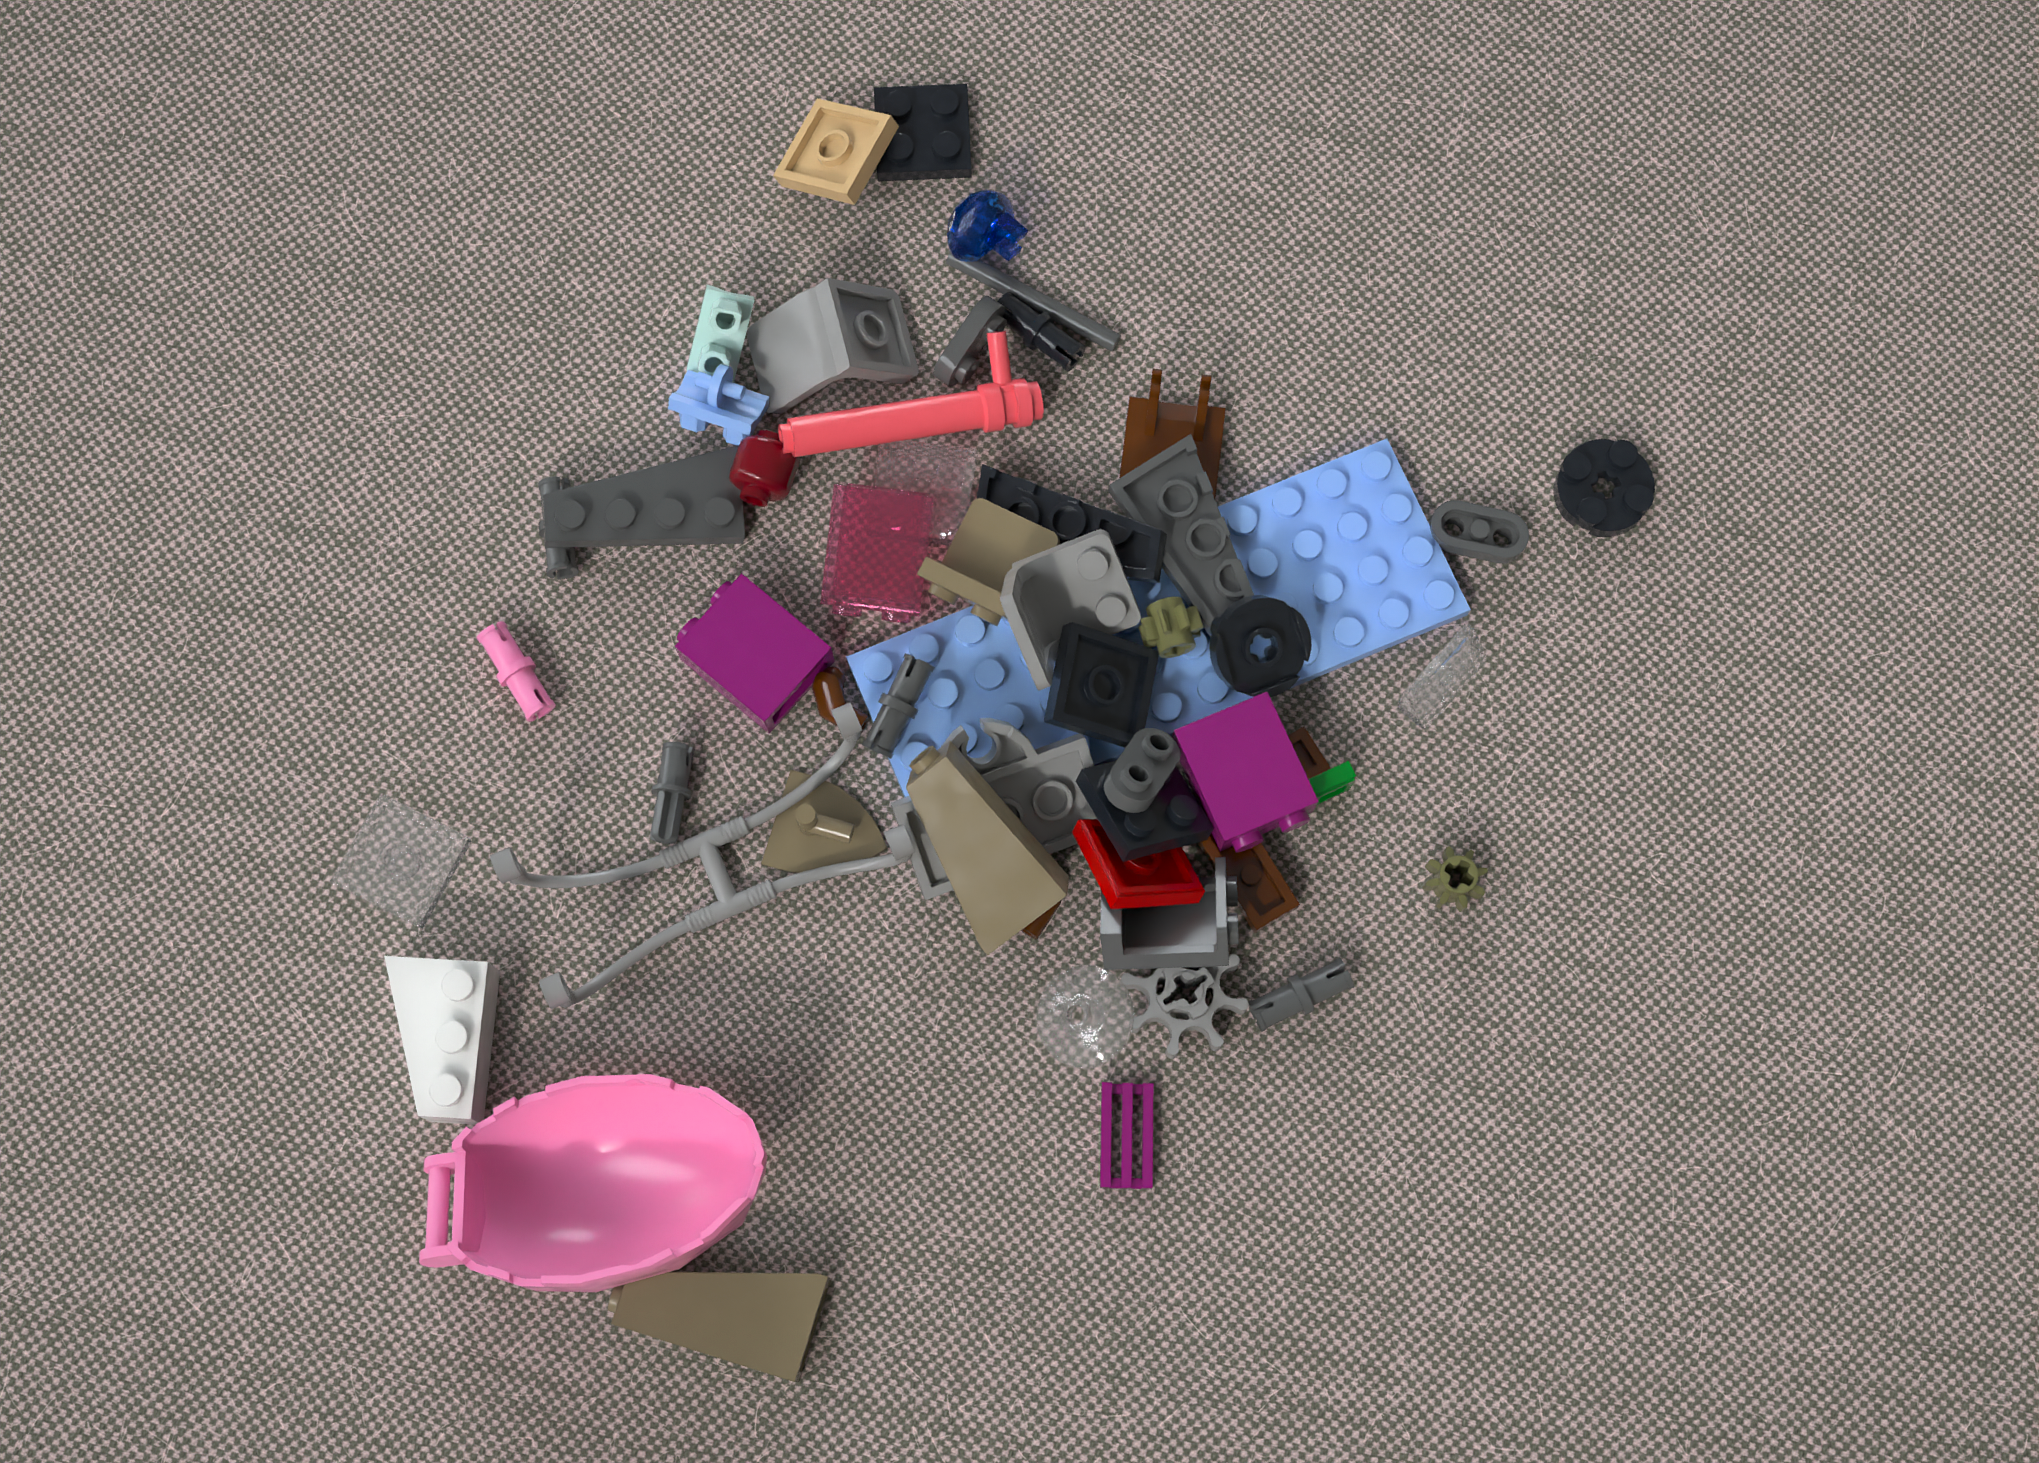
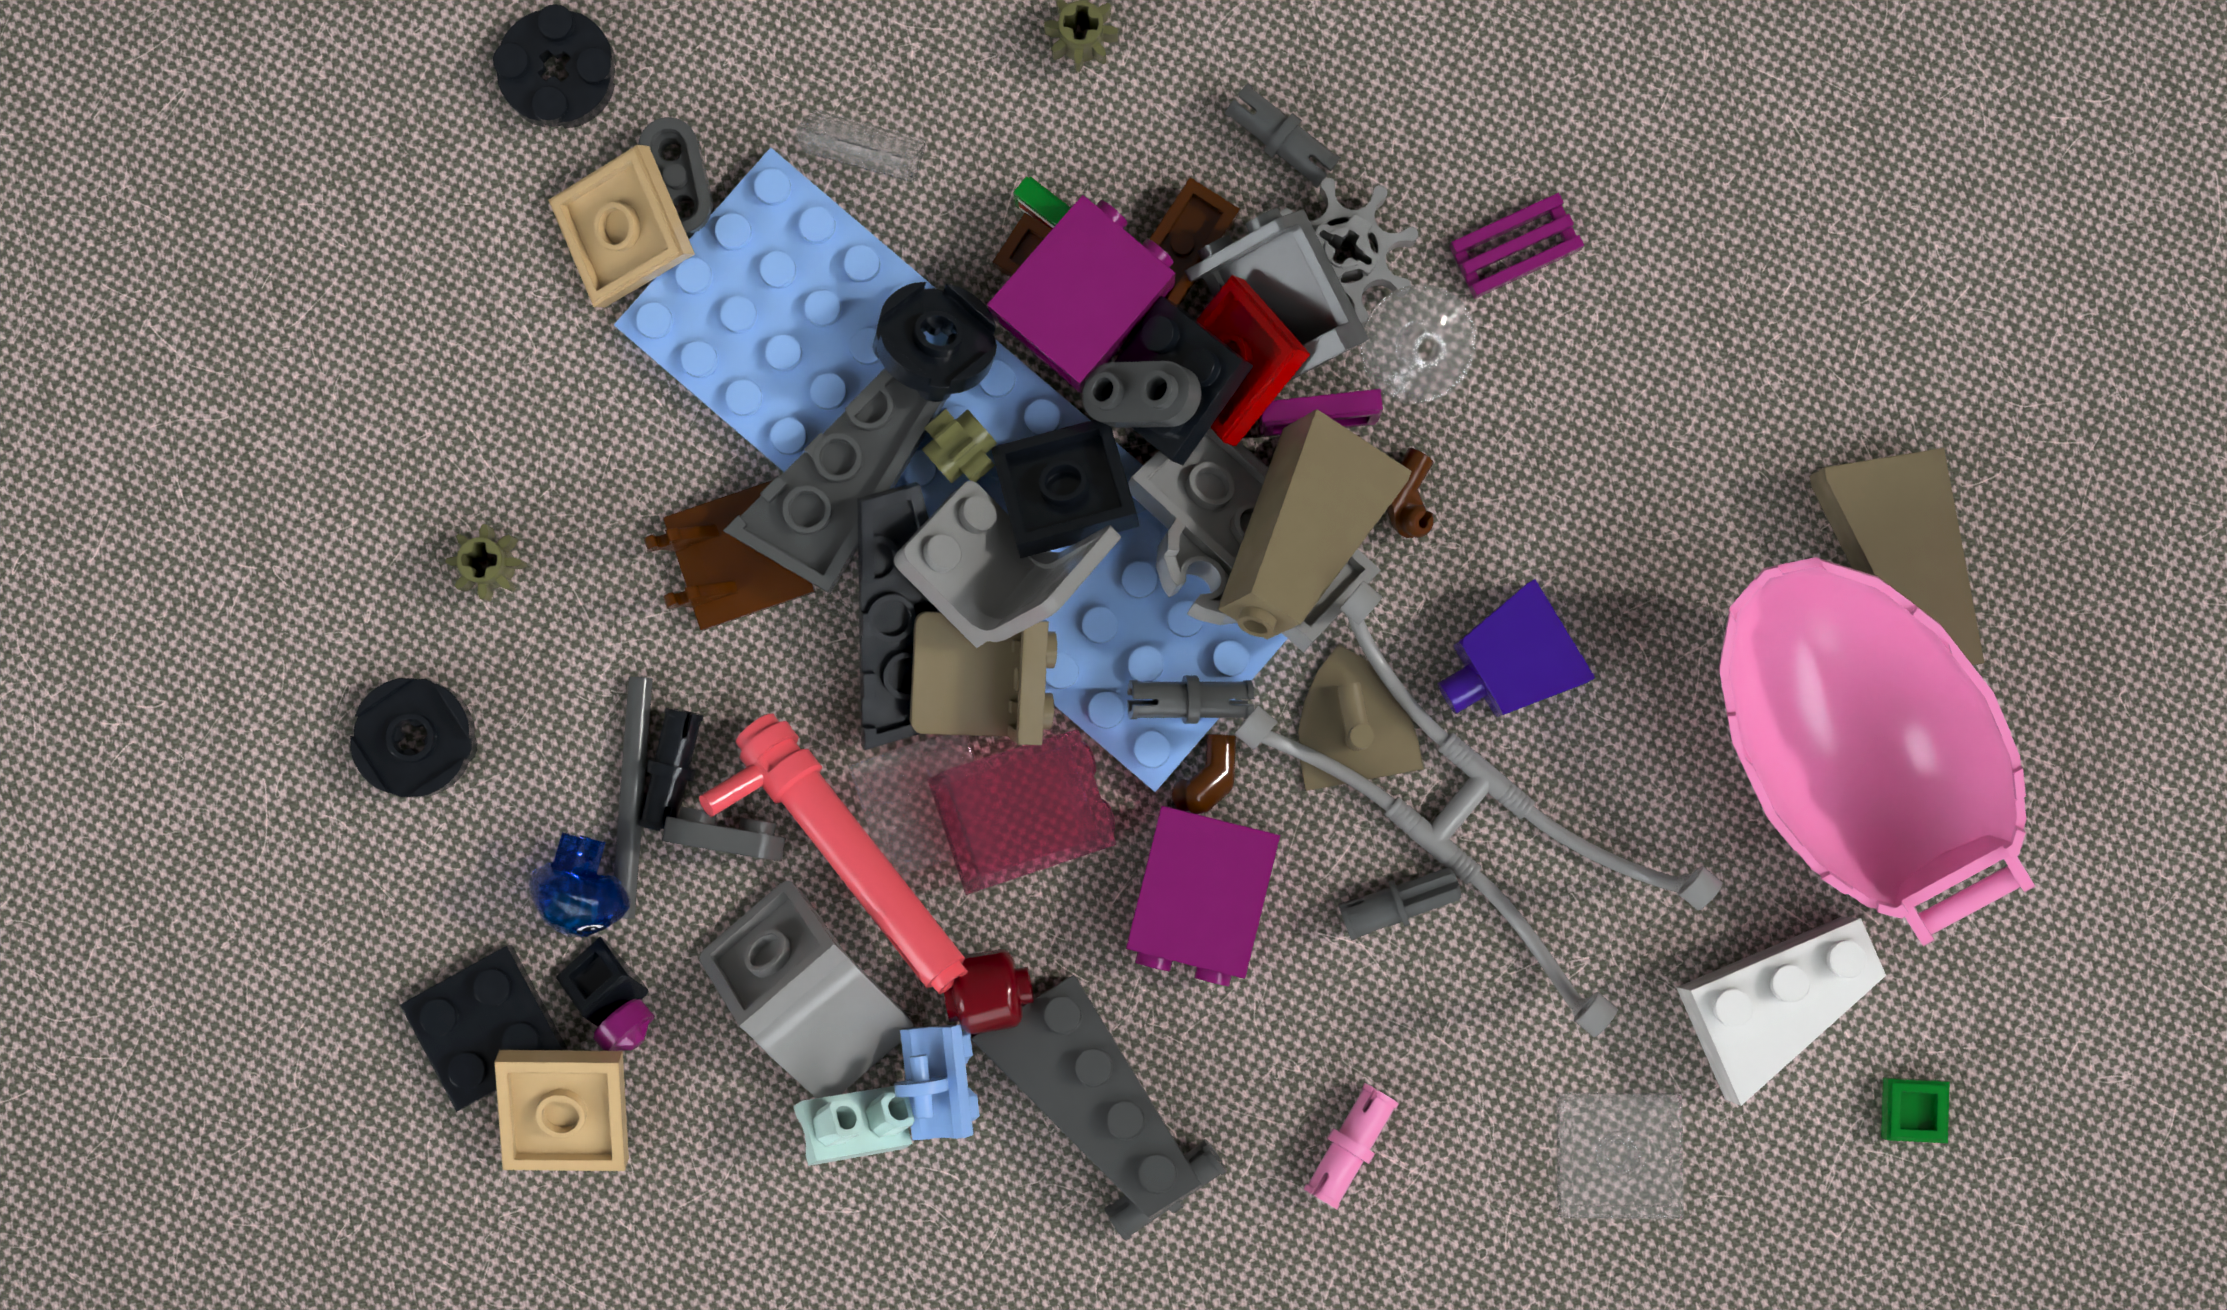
camera: 110 degrees left, 10 degrees up
(310, 1102) = (1915, 1110): none -> green tile
(806, 968) = (1515, 657): none -> dark purple torso
(871, 218) = (624, 1027): none -> magenta tile
(911, 221) = (600, 982): none -> black slope
(962, 946) = (1407, 510): none -> reddish brown arm
(1067, 915) = (1347, 409): none -> magenta tile
(1145, 198) = (379, 729): none -> black plate
(1250, 260) = (478, 549): none -> olive gear
(1458, 474) = (621, 226): none -> tan plate

